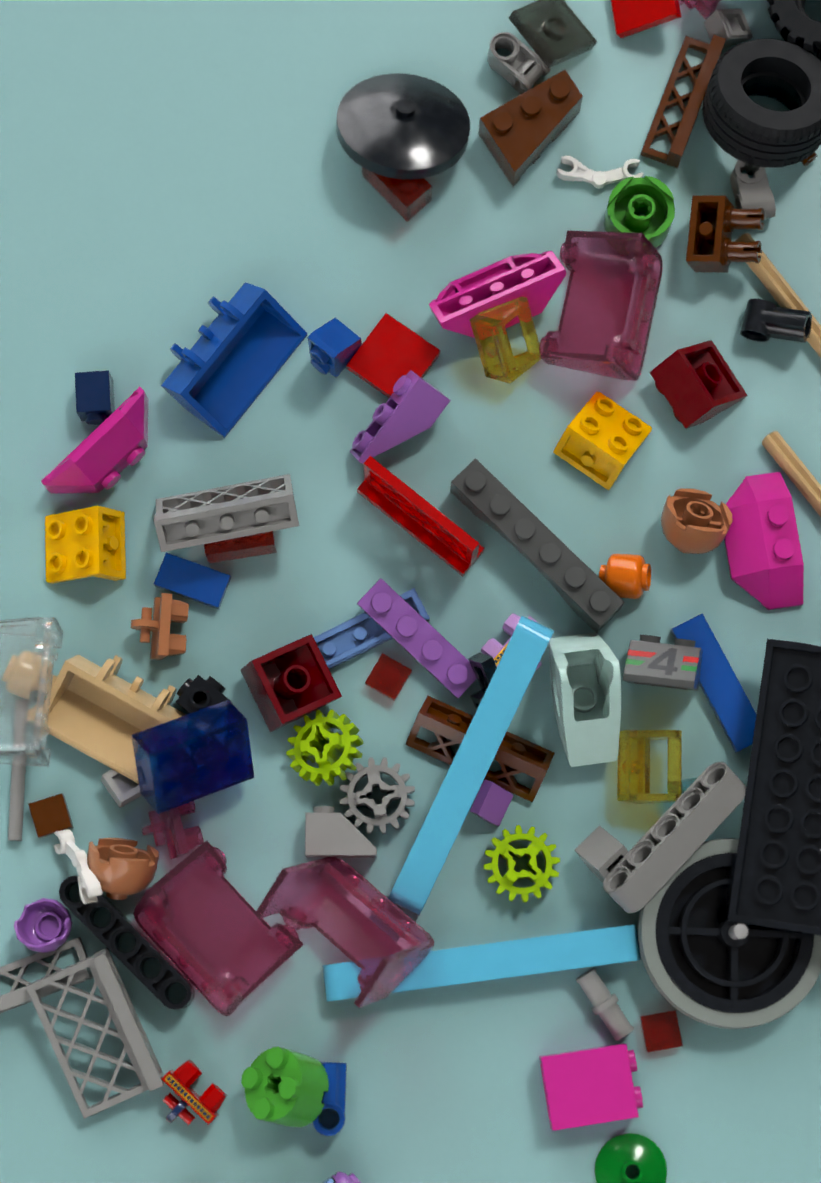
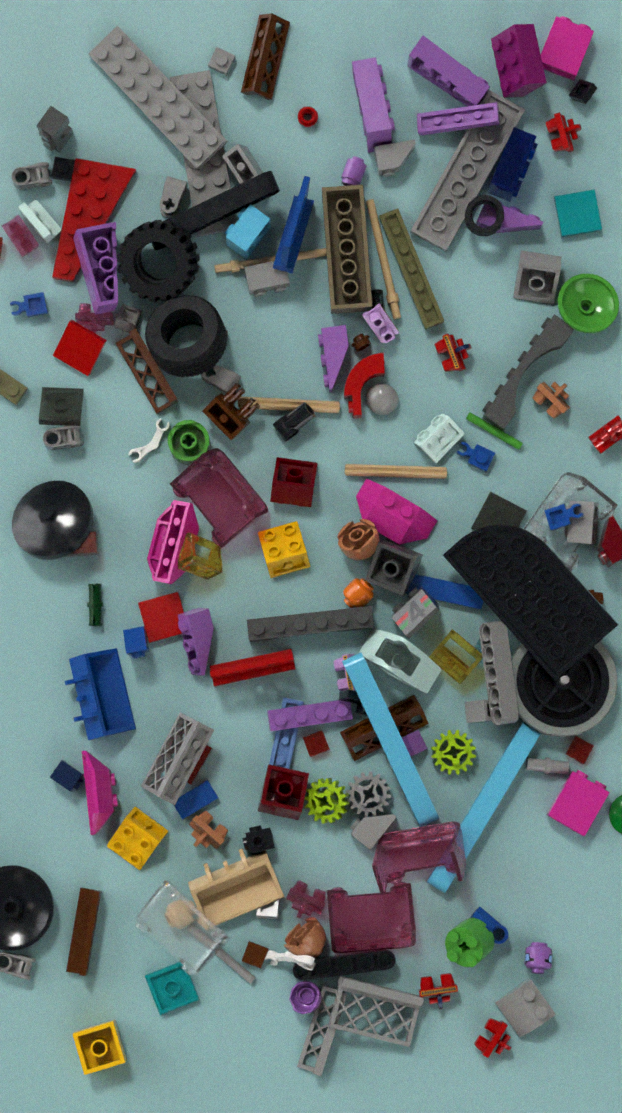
camera: 50 degrees left, 5 degrees up
(193, 756) = (284, 866): clear blue brick -> none
(340, 263) = (95, 604): none -> dark green pin
(529, 123) = (99, 457): reddish brown wedge -> none
(697, 592) = (393, 567): none -> dark grey slope

